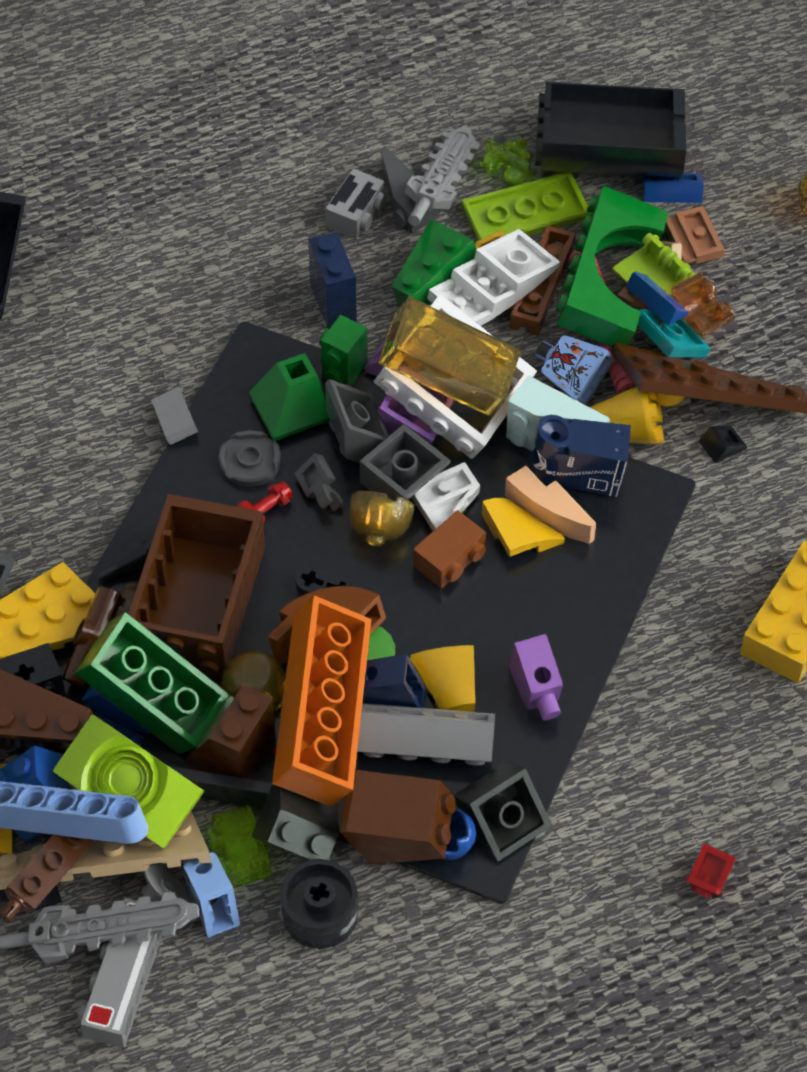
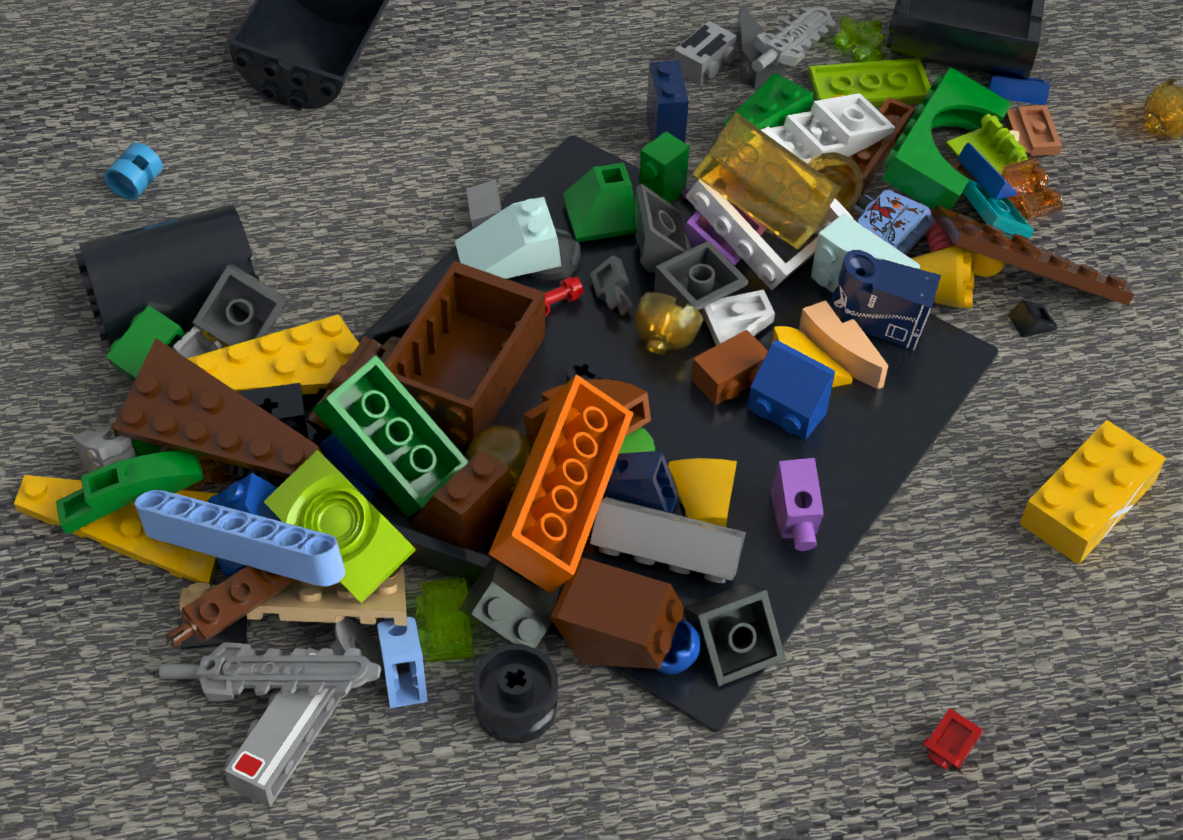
camera: 10 degrees right, 5 degrees down
(212, 457) = (513, 241): none -> light aqua slope
(510, 565) = (791, 390): none -> blue slope
(514, 327) = (843, 173): none -> clear yellow cylinder

